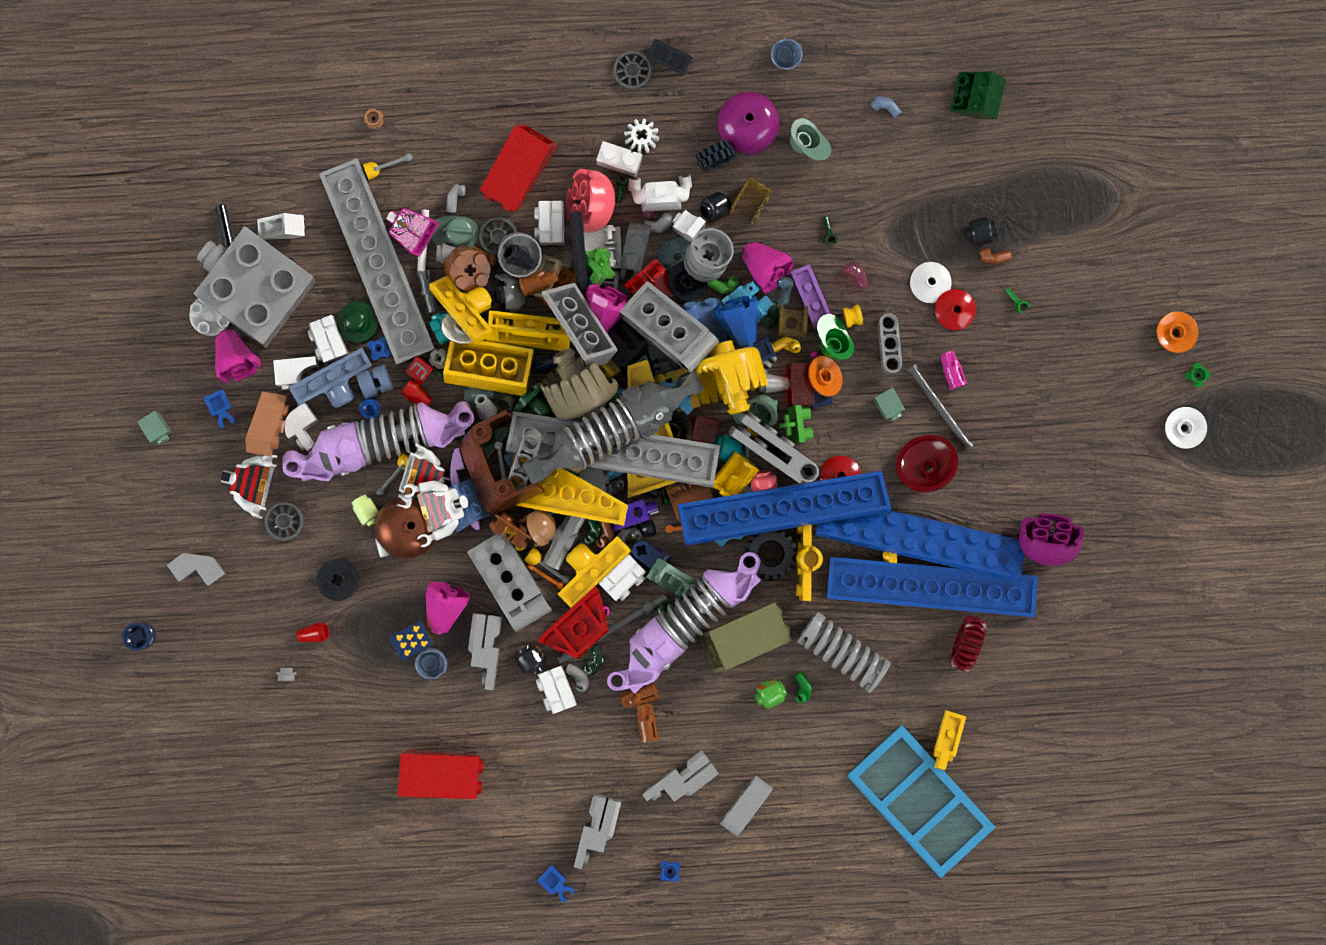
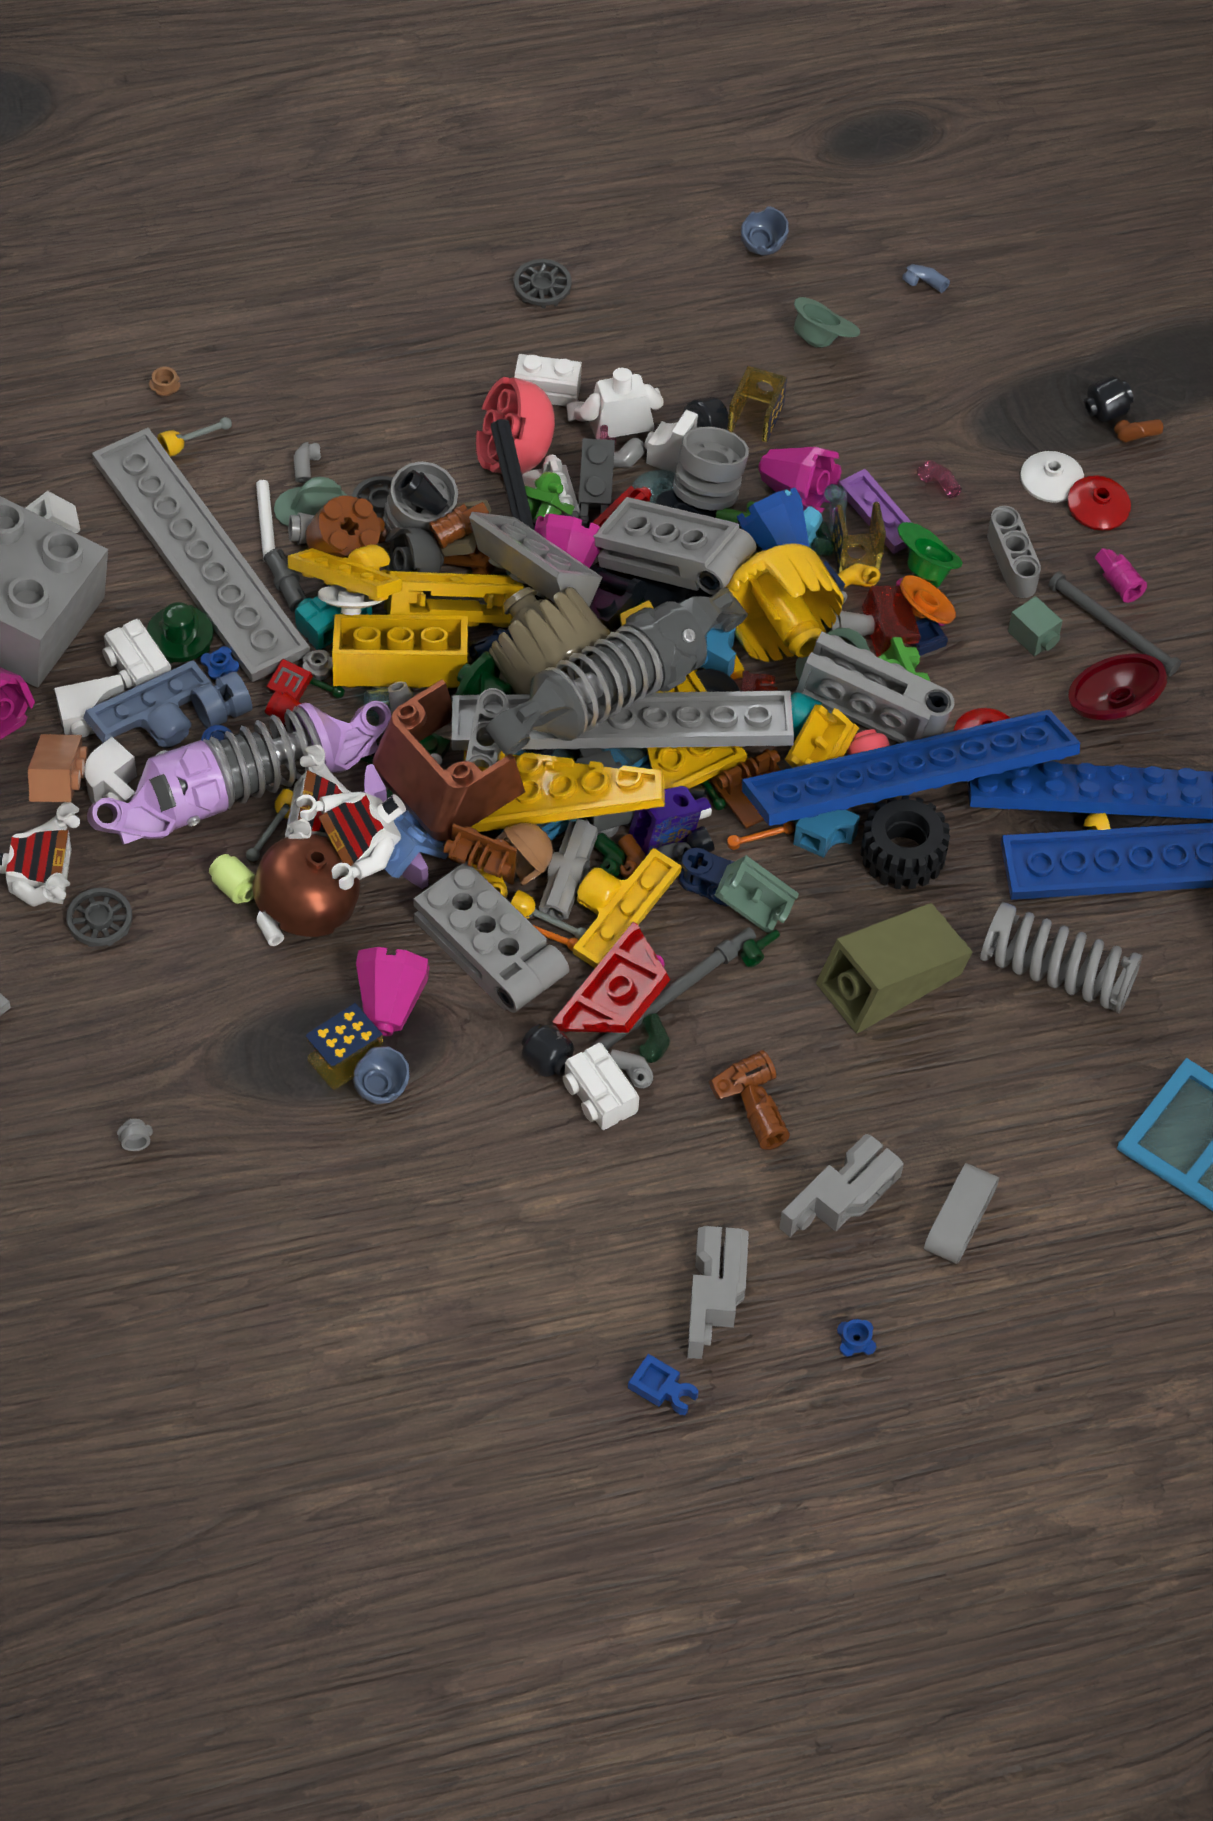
camera: 10 degrees left, 30 degrees down
(314, 633) = (172, 1066): red cone -> none
(327, 574) = (207, 1001): black plate -> none
(412, 230) = (248, 499): dark pink torso -> none
(439, 775) = (426, 1238): red slope -> none
(488, 655) = (469, 1053): light grey plate -> none
(518, 167) = (397, 403): red slope -> none
(550, 222) = (463, 463): white brick -> none
(621, 185) = (560, 415): dark green hand -> none
(622, 578) = (675, 912): white brick -> none
(642, 143) = (576, 346): white gear -> none
(667, 634) = (773, 961): piece -> none
(669, 57) = (596, 251): black hinge -> none
(715, 155) = (690, 353): black bush -> none
(744, 135) = (729, 317): magenta cylinder -> none
(770, 693) = (958, 1039): bright green head -> none
(805, 688) = (1012, 1028): green arm -> none
(807, 560) = (967, 833): yellow plate -> none
(828, 231) = (884, 434): dark green hand -> none
(852, 316) = (948, 524): yellow wheel -> none
(978, 95) = (1054, 245): dark green slope -> none
(1017, 301) = (1194, 484): green hand -> none

